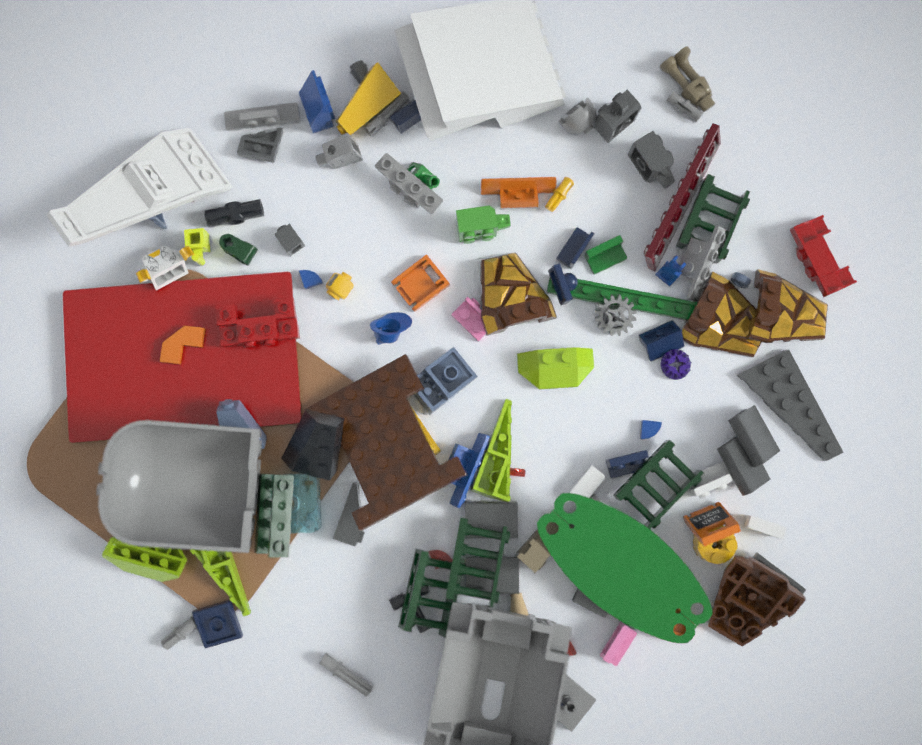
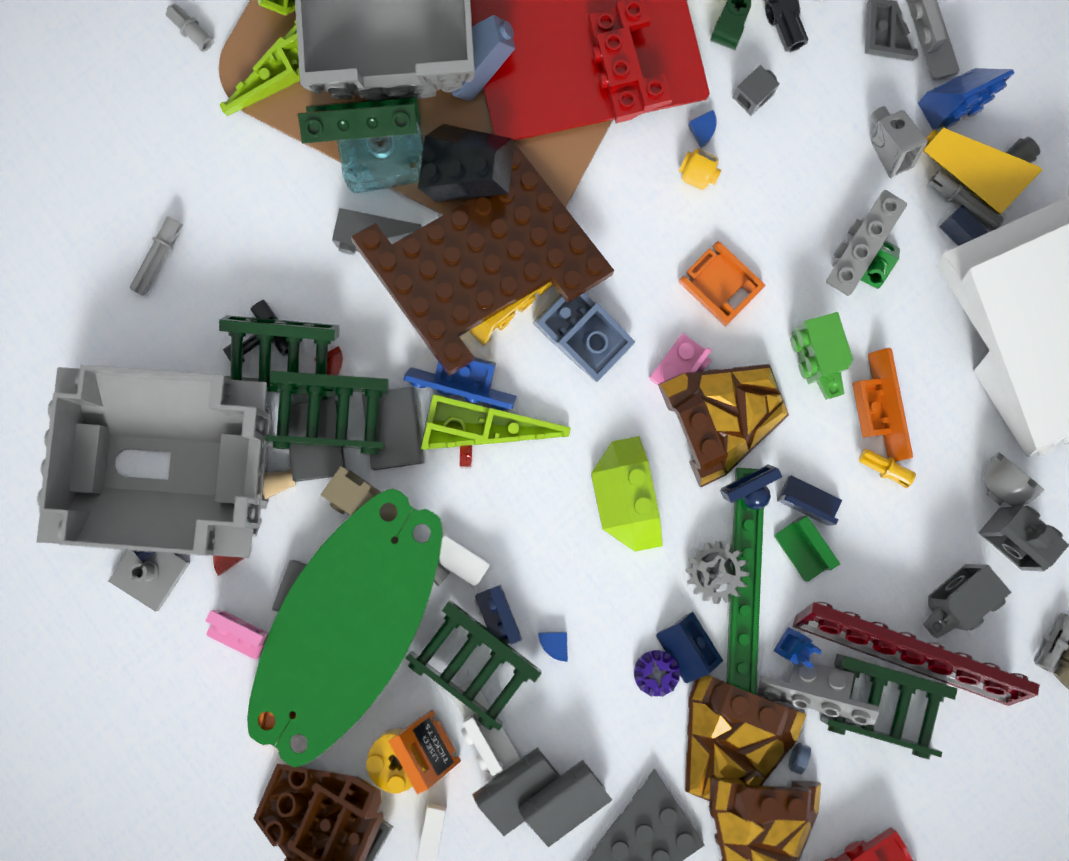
camera: 80 degrees right, 0 degrees up
(217, 624) = (206, 73): dark blue tile -> none
(388, 328) = (650, 246): blue piece -> none

